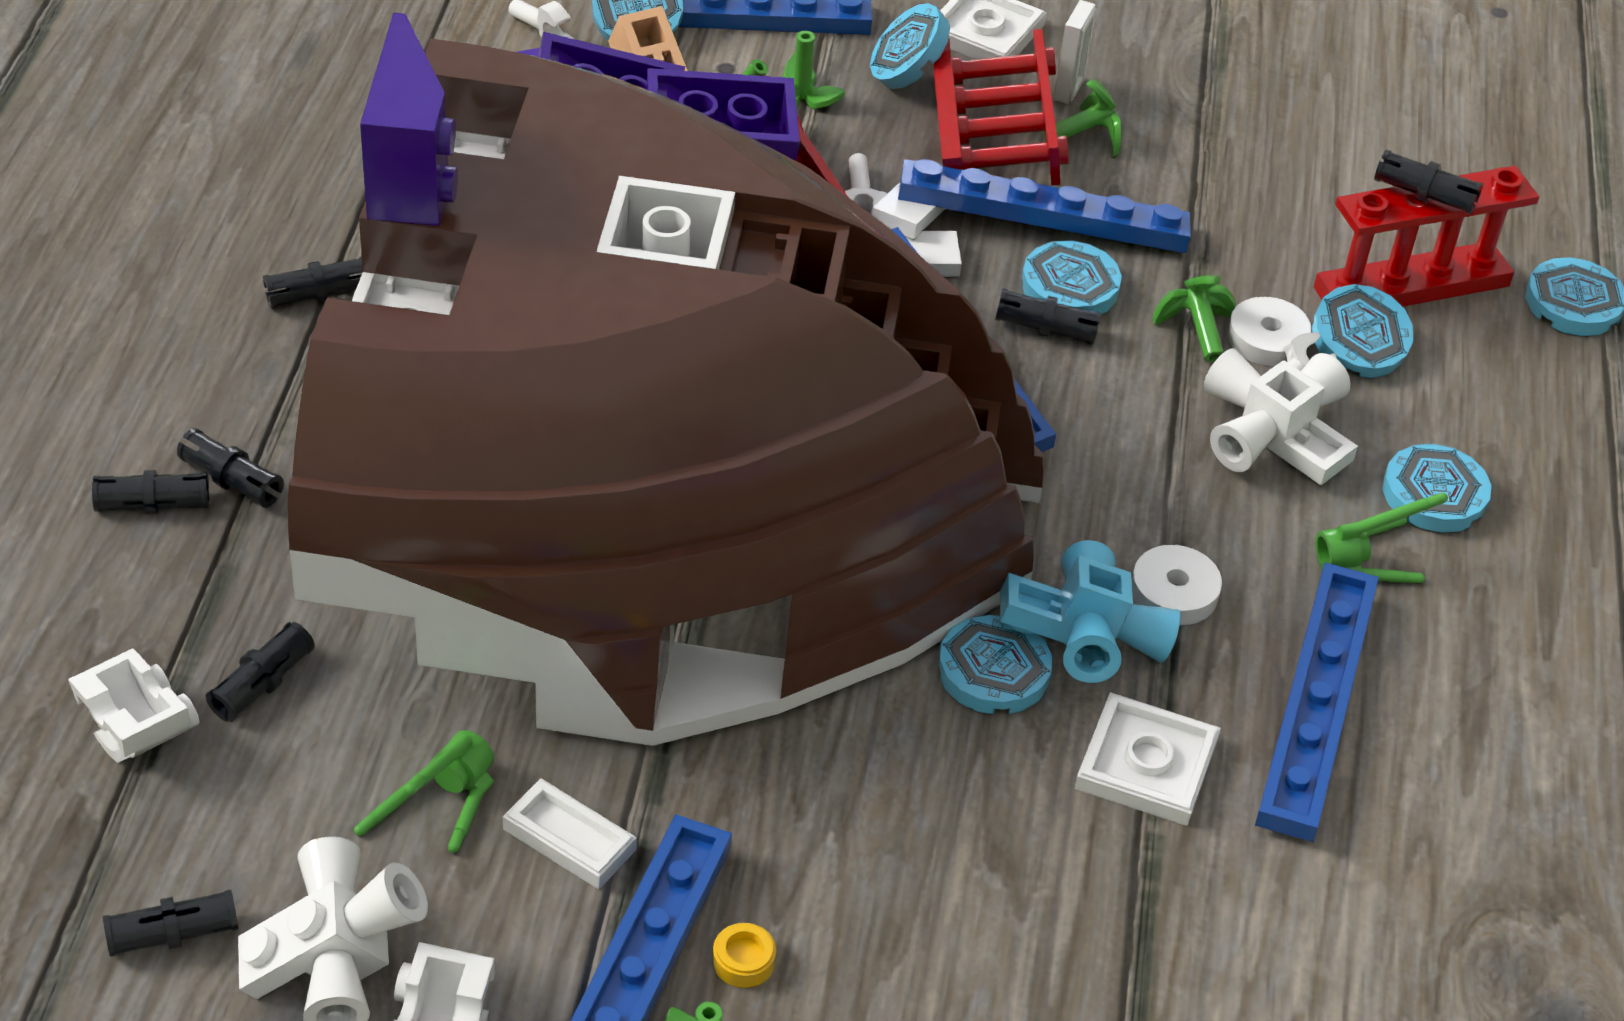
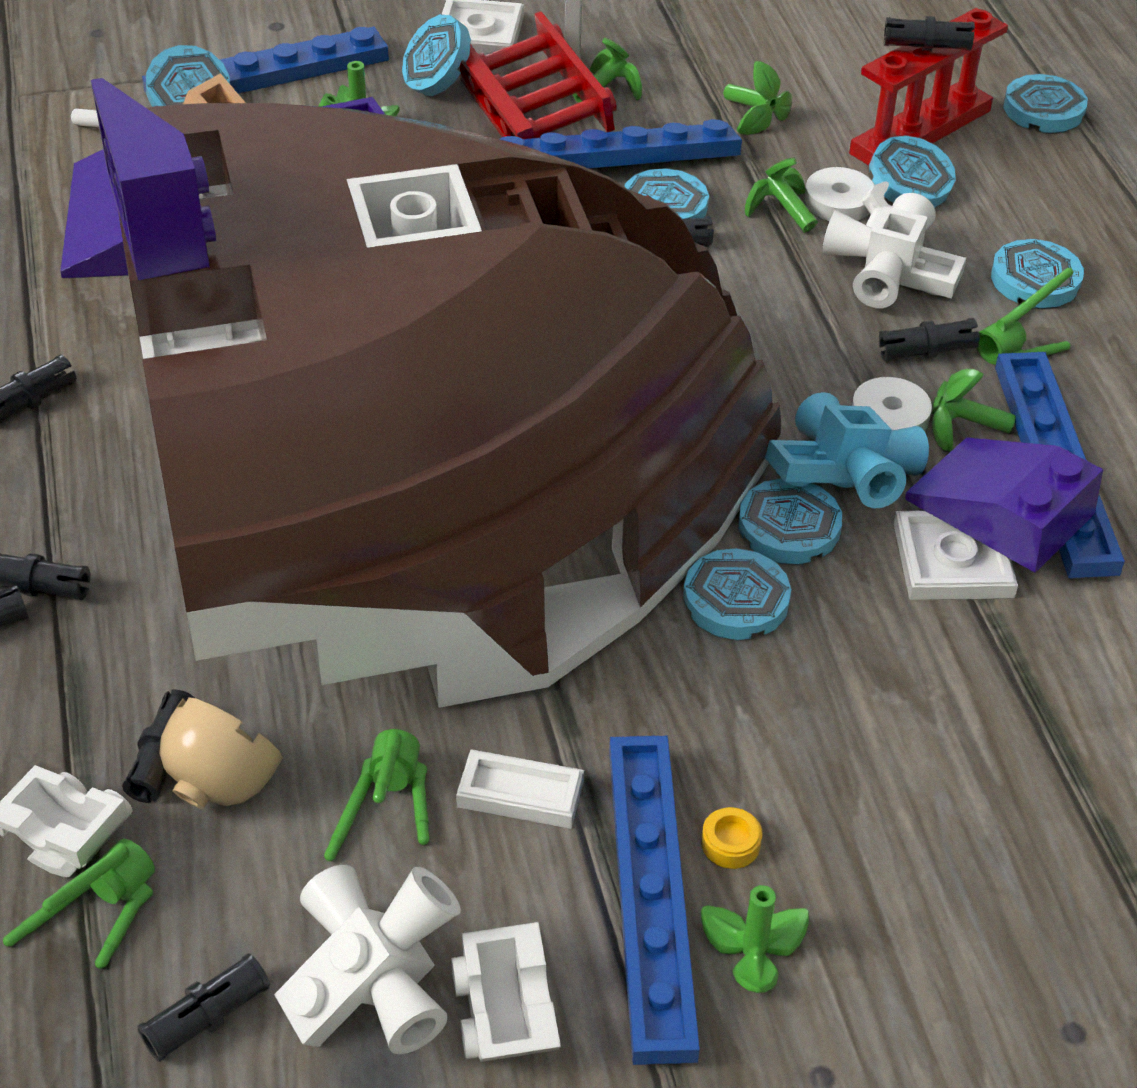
camera: 20 degrees left, 0 degrees up
(155, 776) = (113, 877): none -> bright green plant
(293, 699) = (214, 756): none -> tan cylinder
(894, 719) = (737, 593): none -> medium azure tile
(1231, 719) = (1011, 496): none -> dark purple slope
(1238, 601) = (951, 404): none -> bright green plant
(1242, 192) = (761, 100): none -> bright green plant
(1262, 522) = (929, 339): none -> black pin

